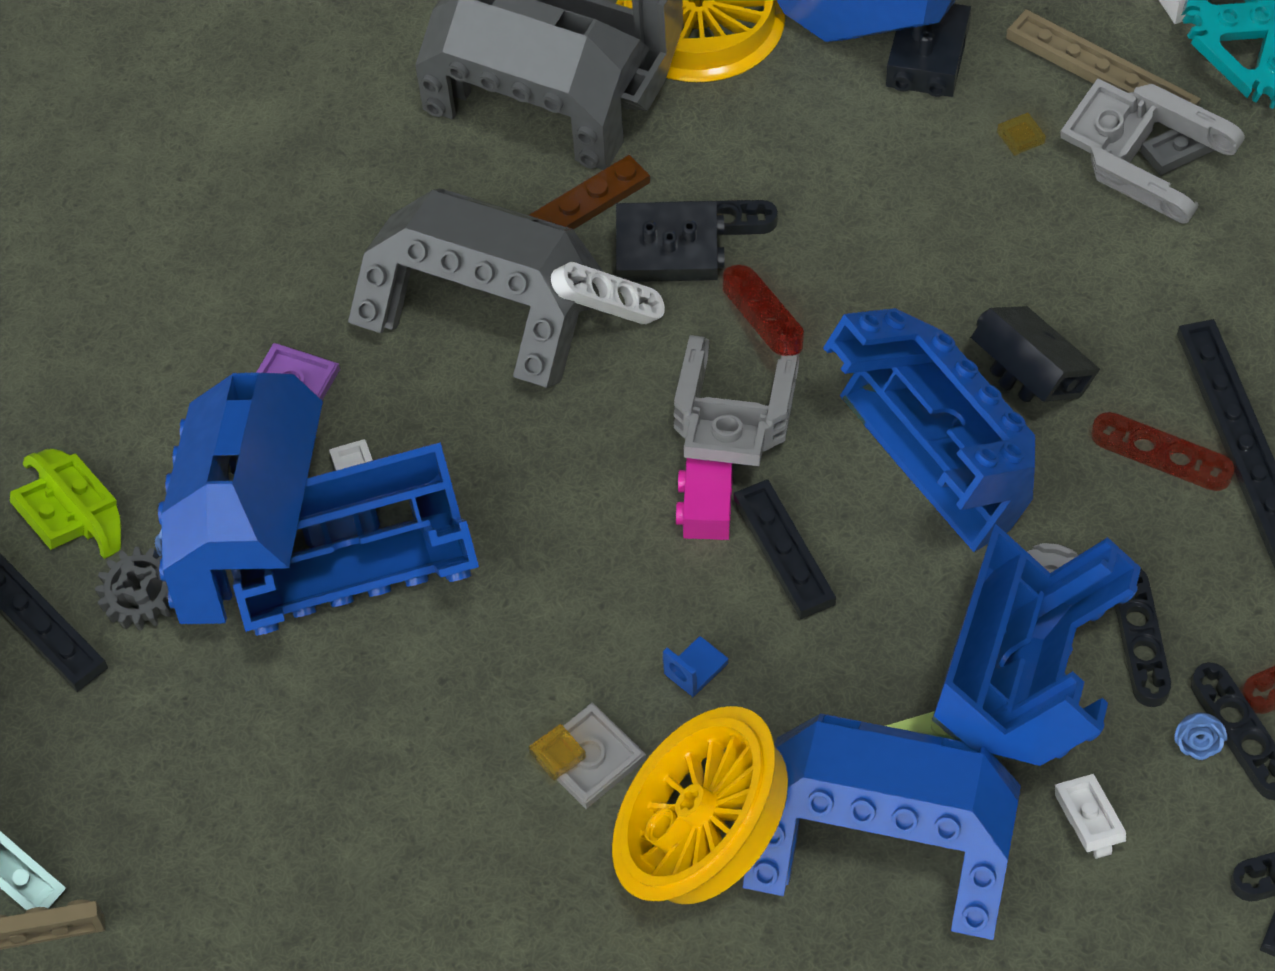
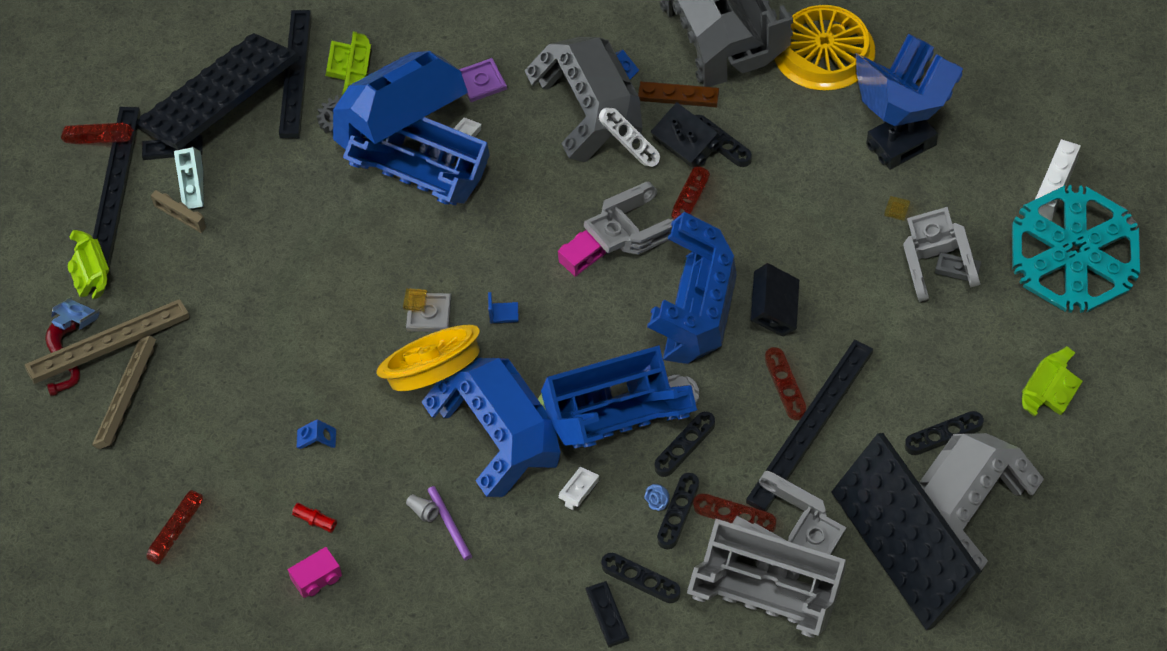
camera: 45 degrees right, 0 degrees up
(784, 549) = (588, 296): black plate -> none
(1083, 56) = (968, 206): dark tan plate -> none

